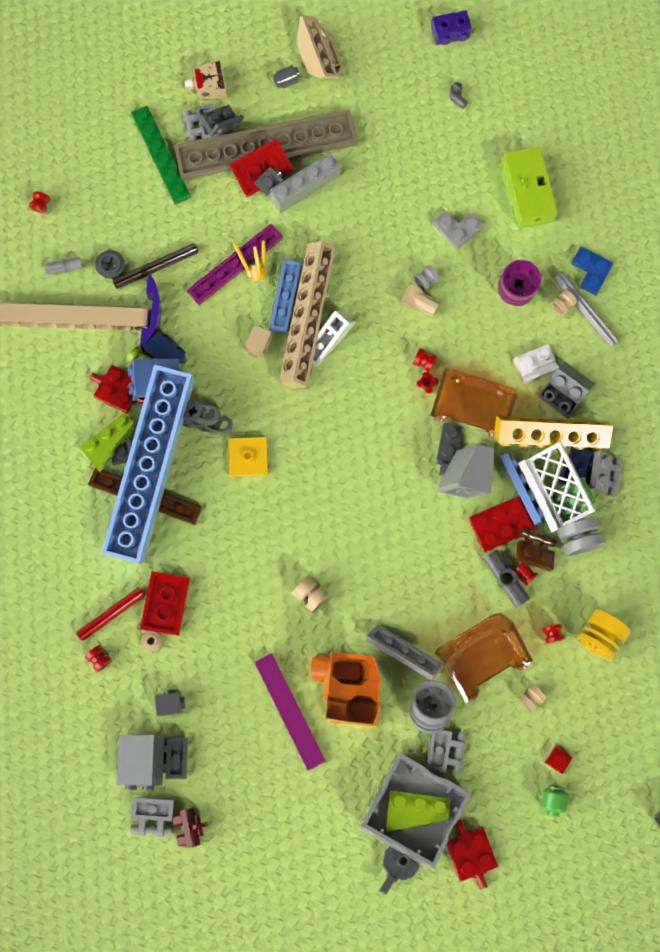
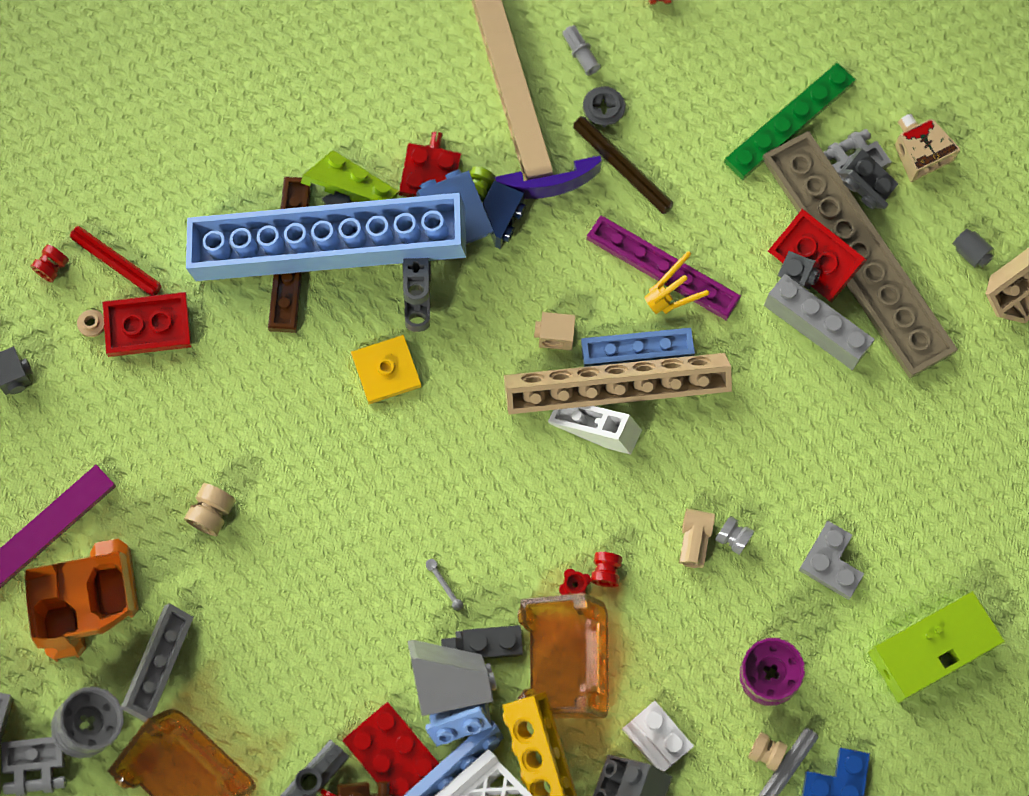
camera: 70 degrees right, 5 degrees down
(387, 465) = (431, 565): none -> light grey hinge
(499, 477) = (458, 723): none -> light blue bracket

